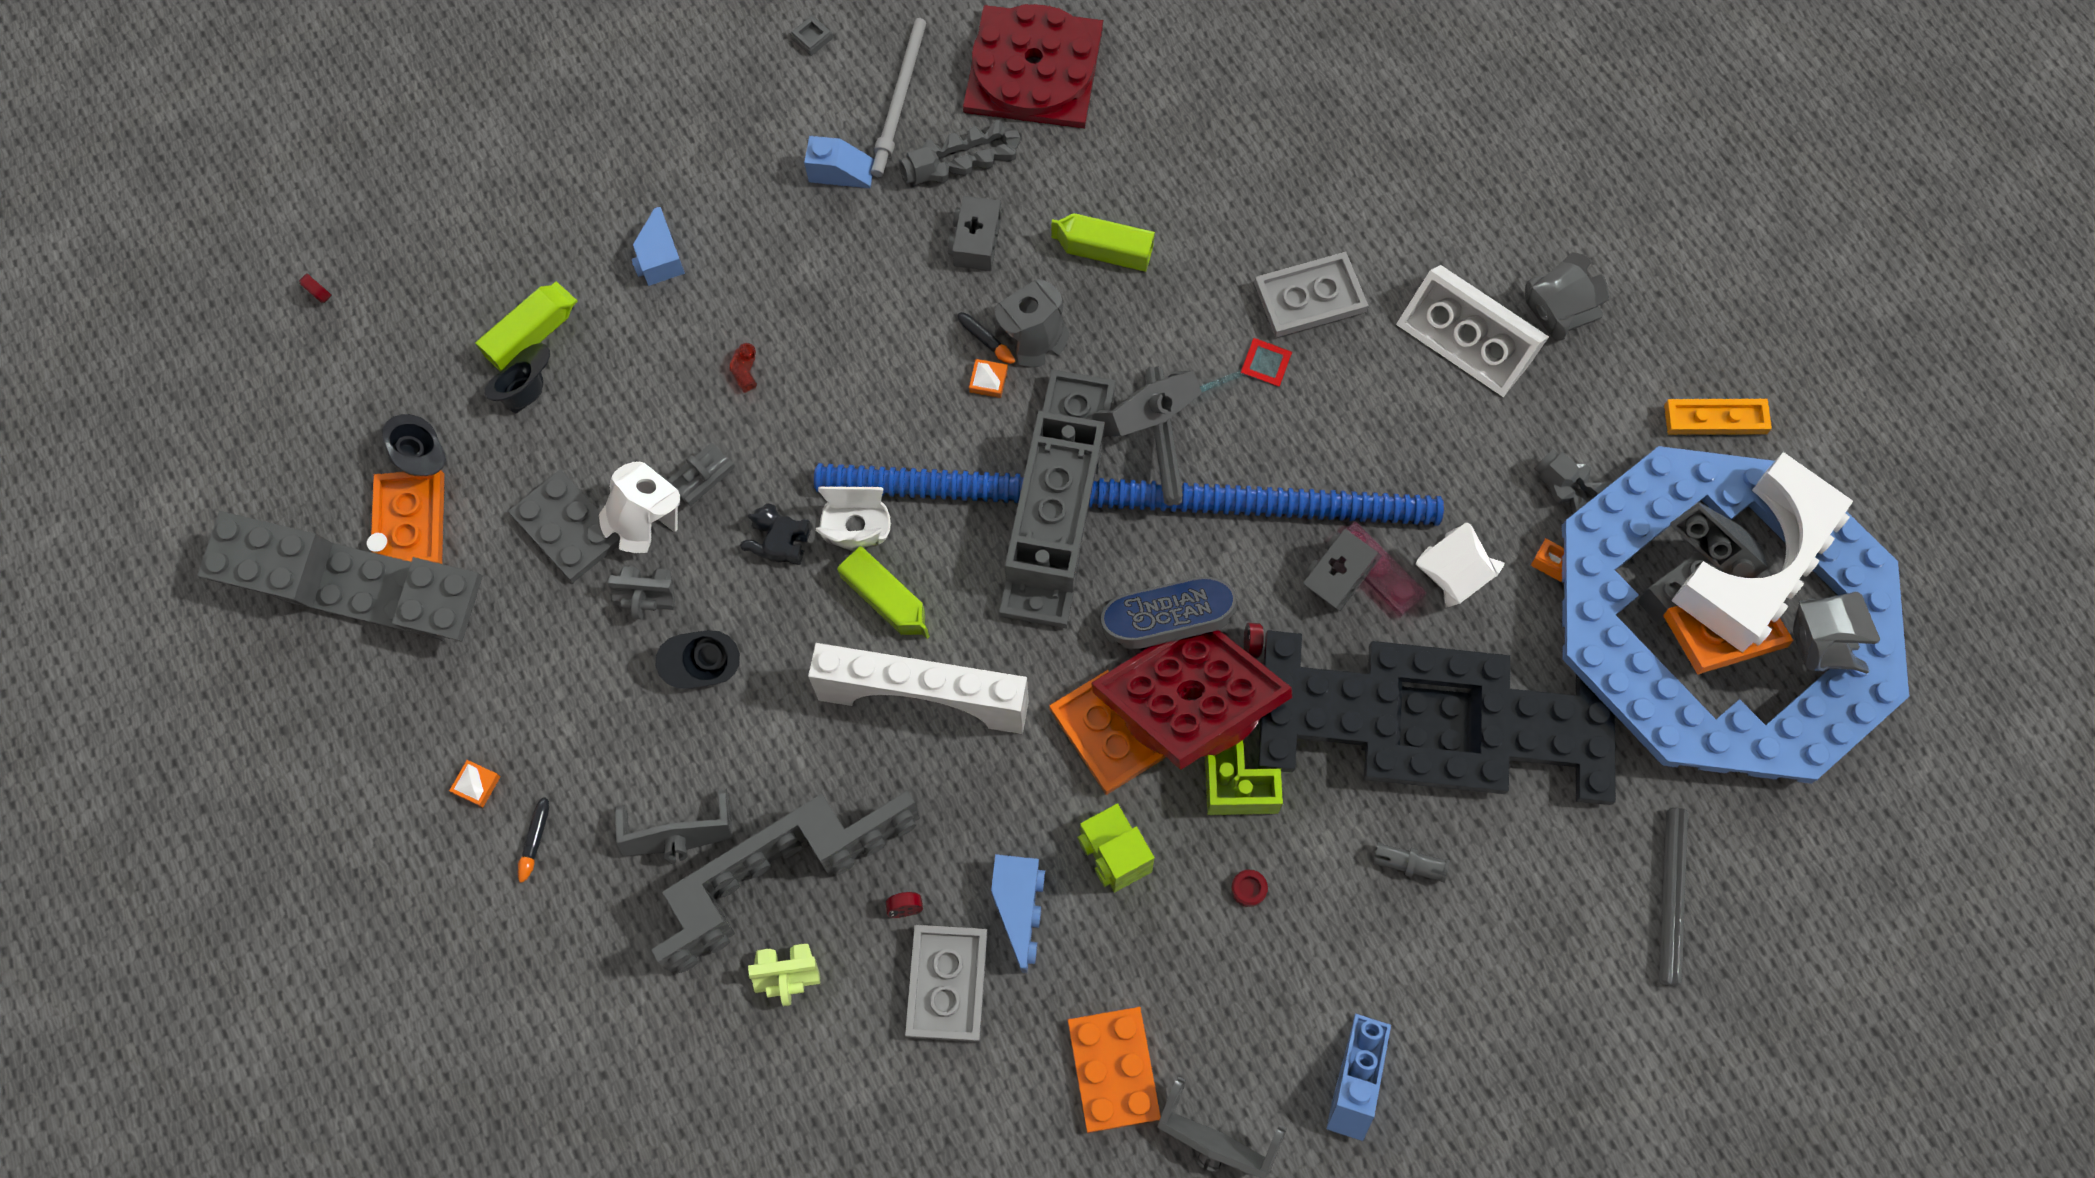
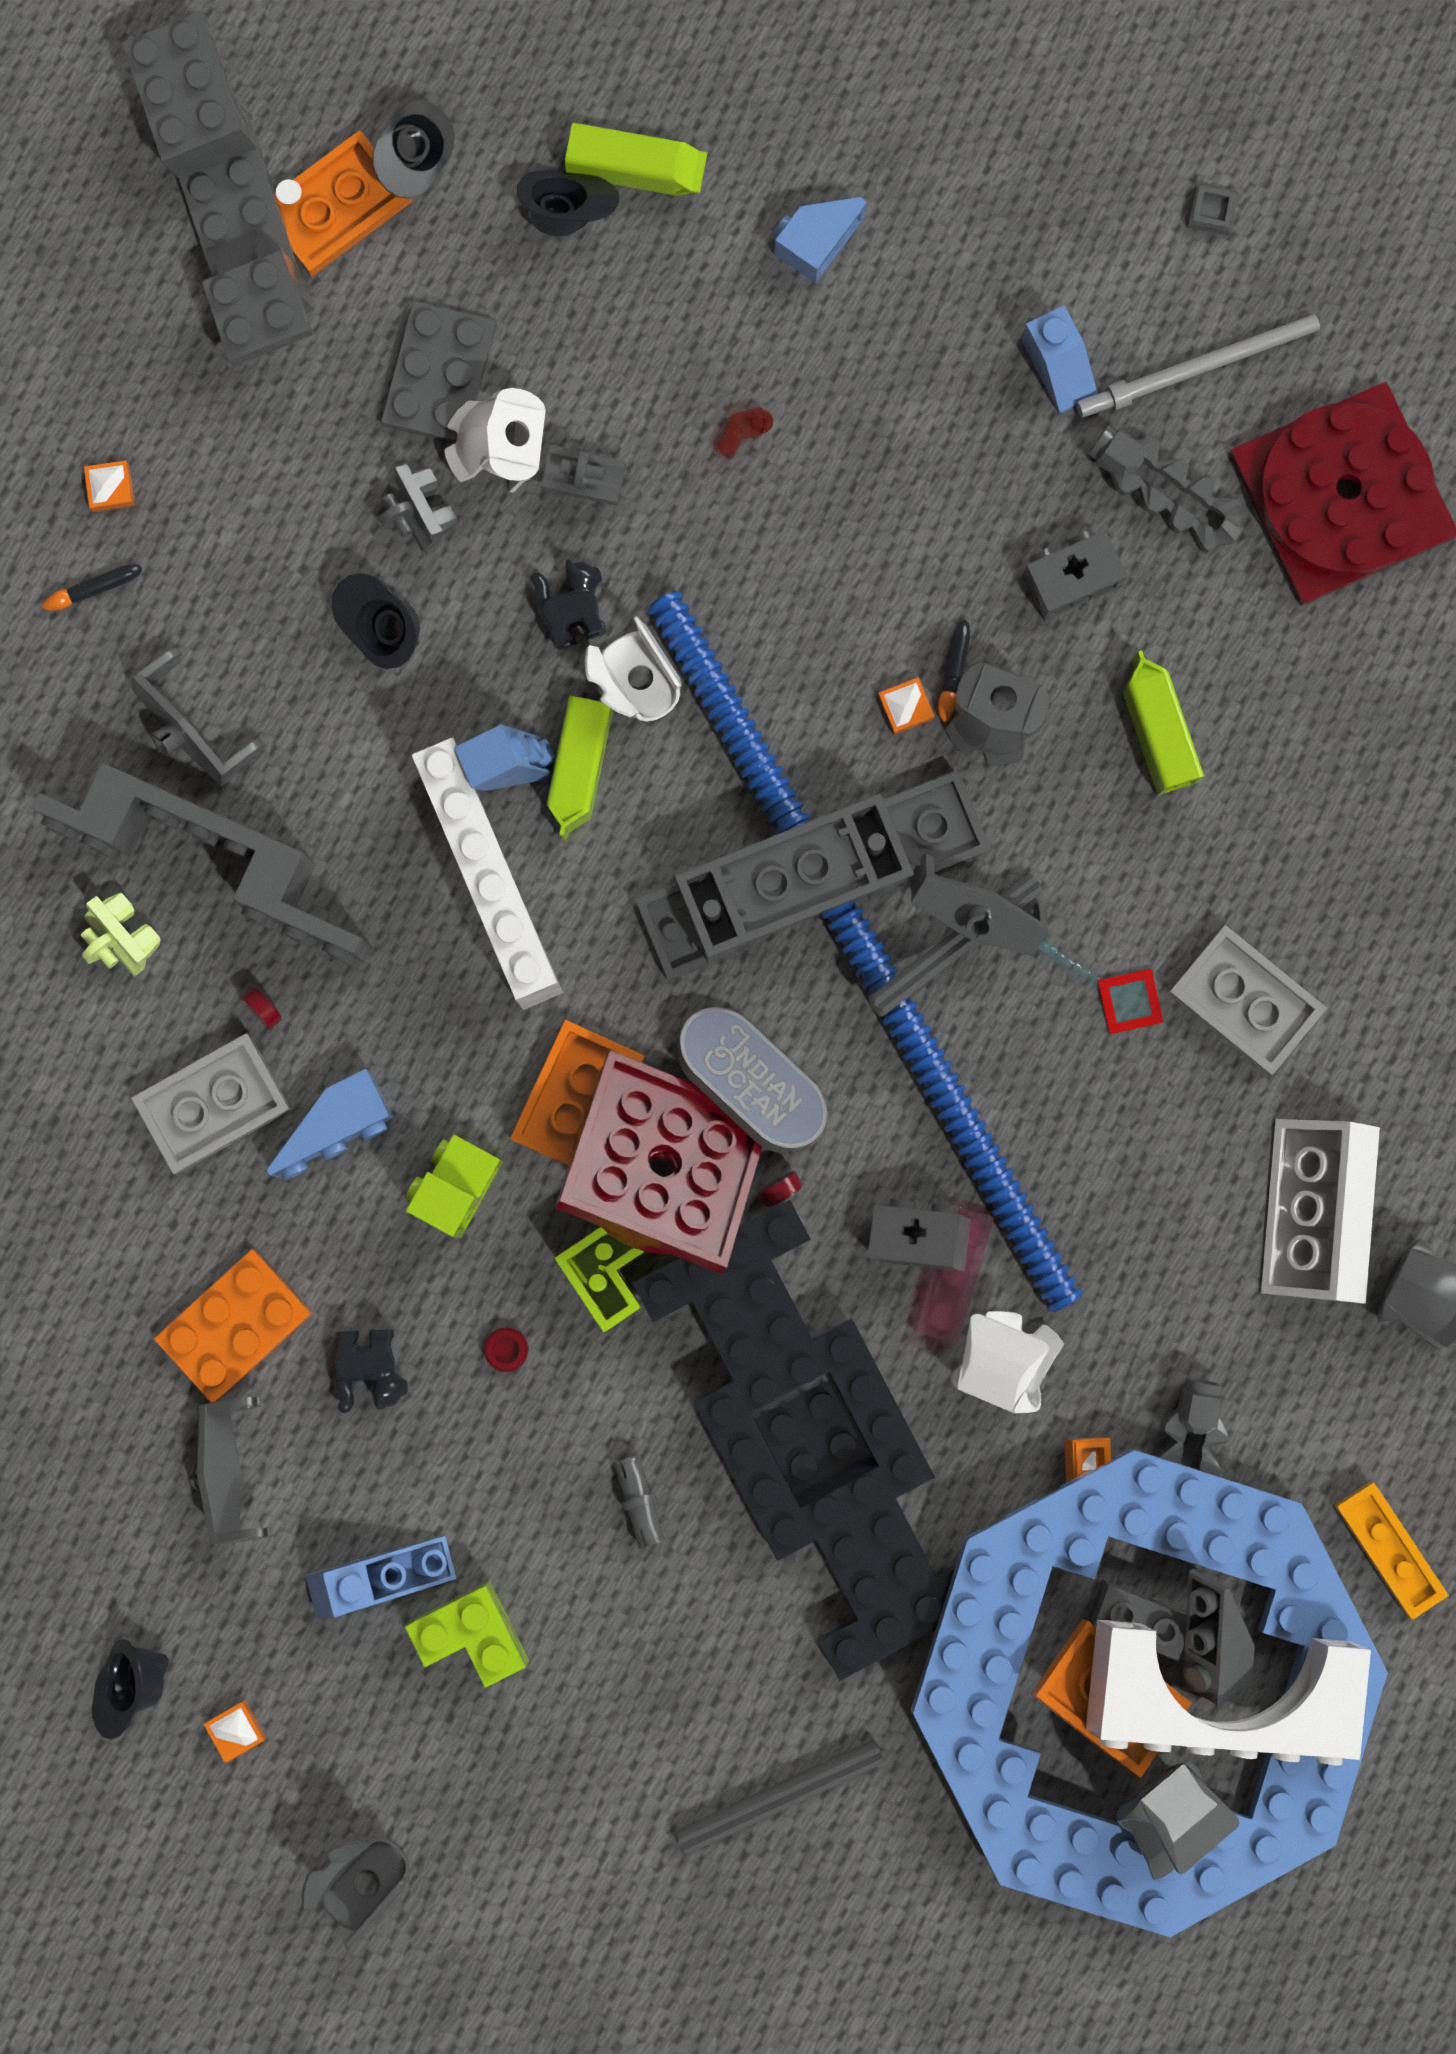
camera: 55 degrees right, 15 degrees up
(851, 624) = (505, 758): none -> medium blue slope
(1197, 994) = (373, 1362): none -> black animal
(1433, 1026) = (472, 1622): none -> lime brick

